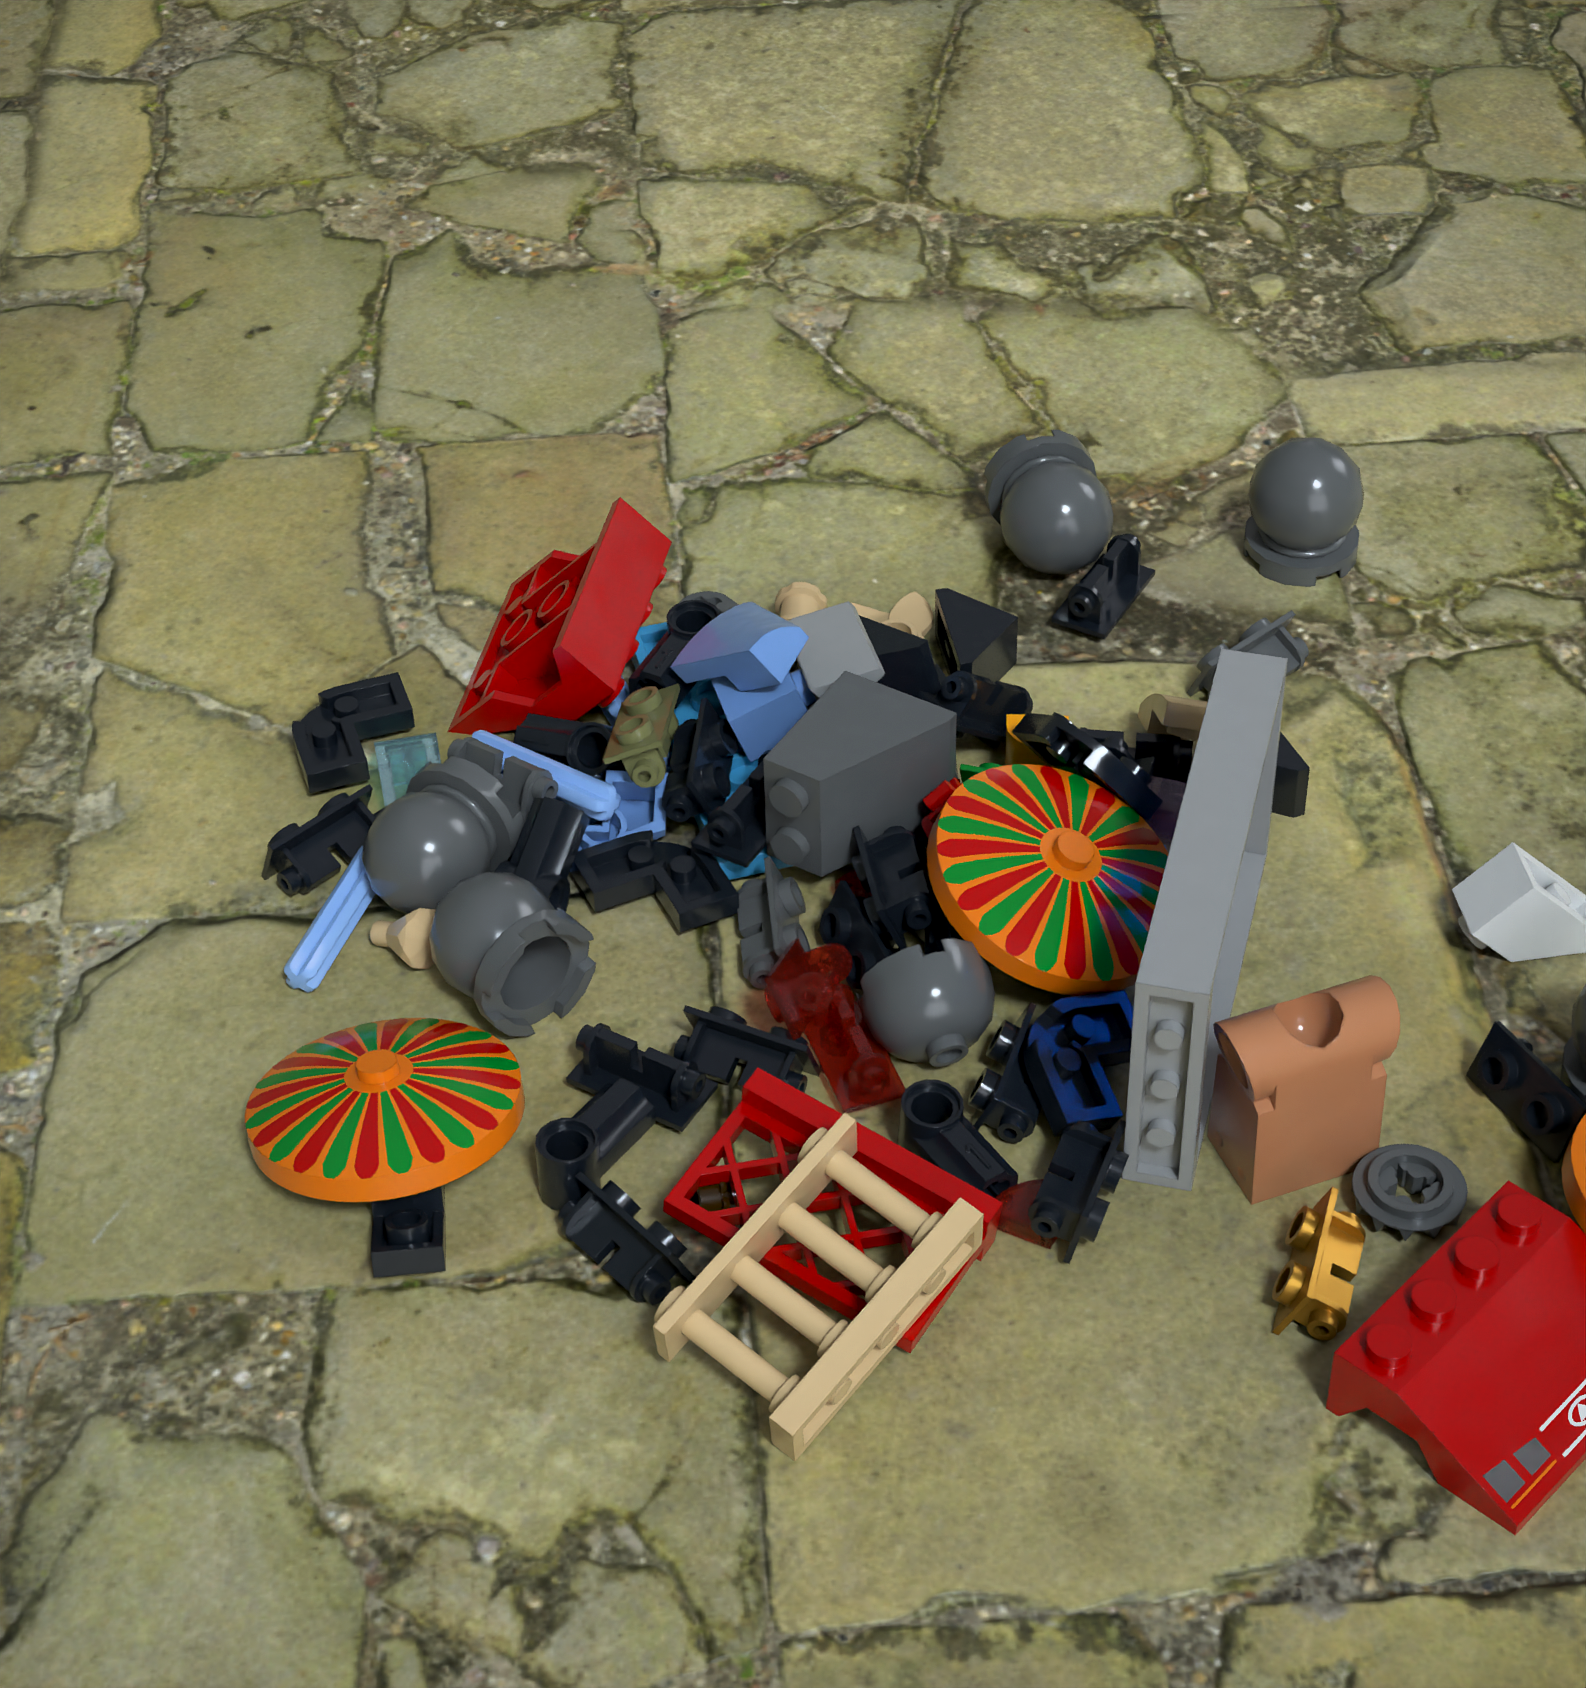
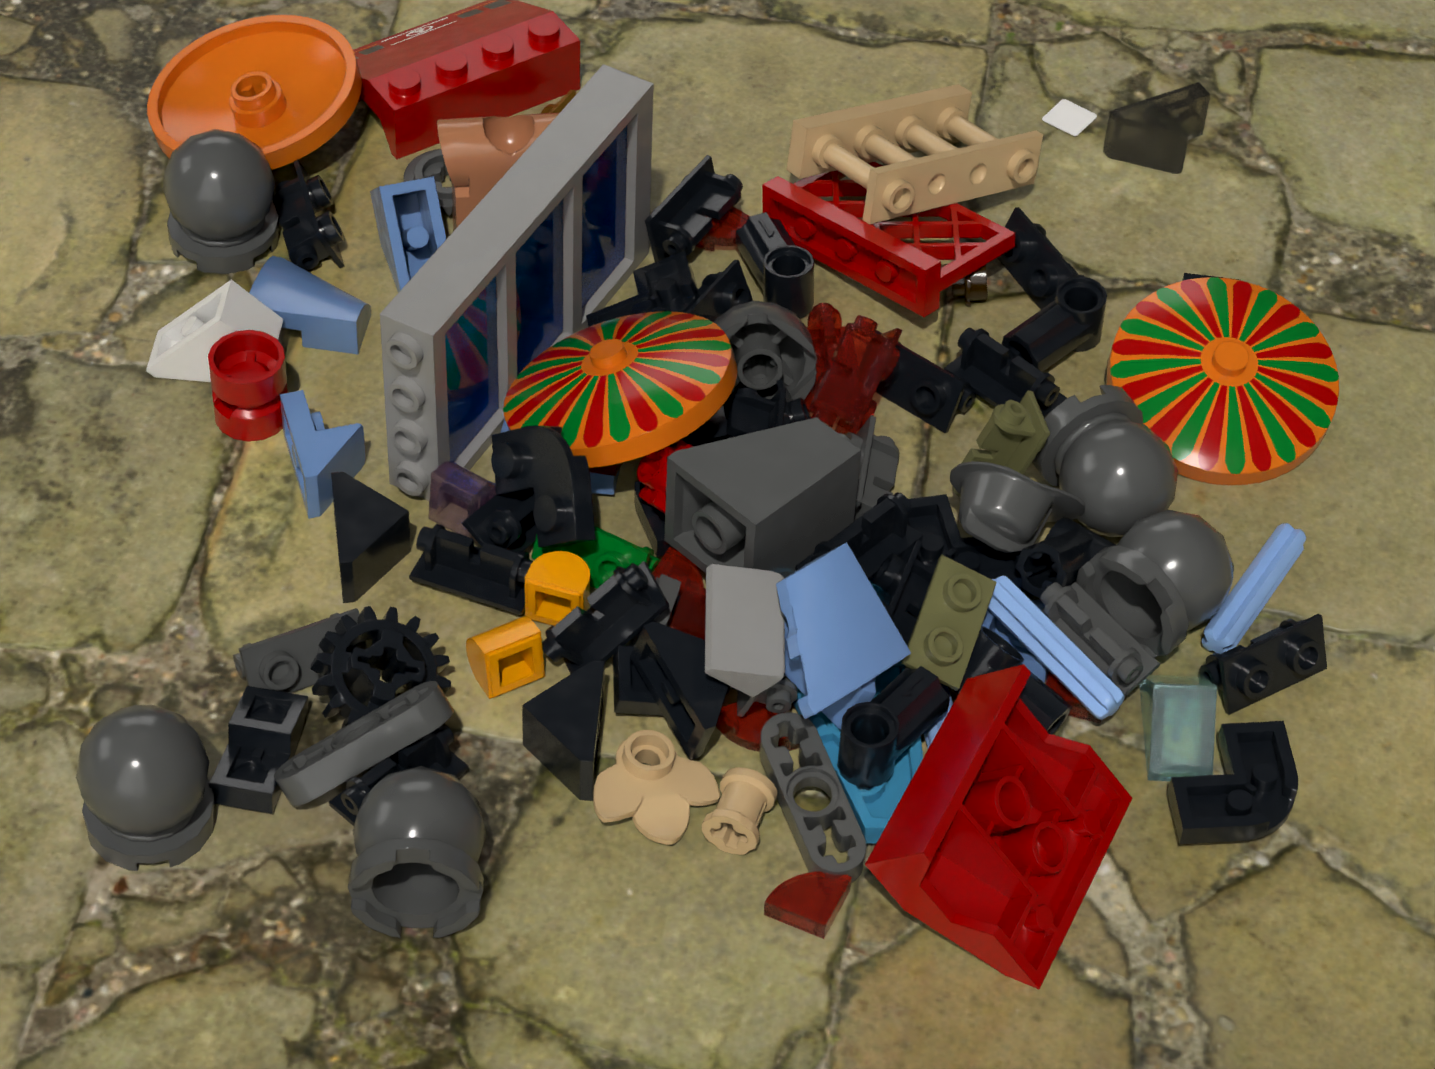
camera: 170 degrees left, 5 degrees up
(506, 1478) = (1157, 128): none -> clear smoke slope
(603, 864) = (1006, 506): none -> dark grey piece
(627, 920) = (1011, 435): none -> olive hinge
(630, 1526) = (1069, 117): none -> white sticker
(724, 579) = (809, 901): none -> clear red tile
(1065, 686) = (506, 656): none -> light orange brick
(1128, 588) = (363, 743): none -> dark grey beam
(1161, 638) = (395, 649): none -> black gear
(1172, 716) = (412, 559): tan slope -> none
(1237, 590) = (260, 741): none -> black slope
(1355, 821) = (318, 451): none -> medium blue slope
(1425, 1092) = (408, 225): none -> medium blue slope
(1451, 844) = (247, 384): none -> red wheel
(1466, 986) = (307, 303): none -> medium blue slope

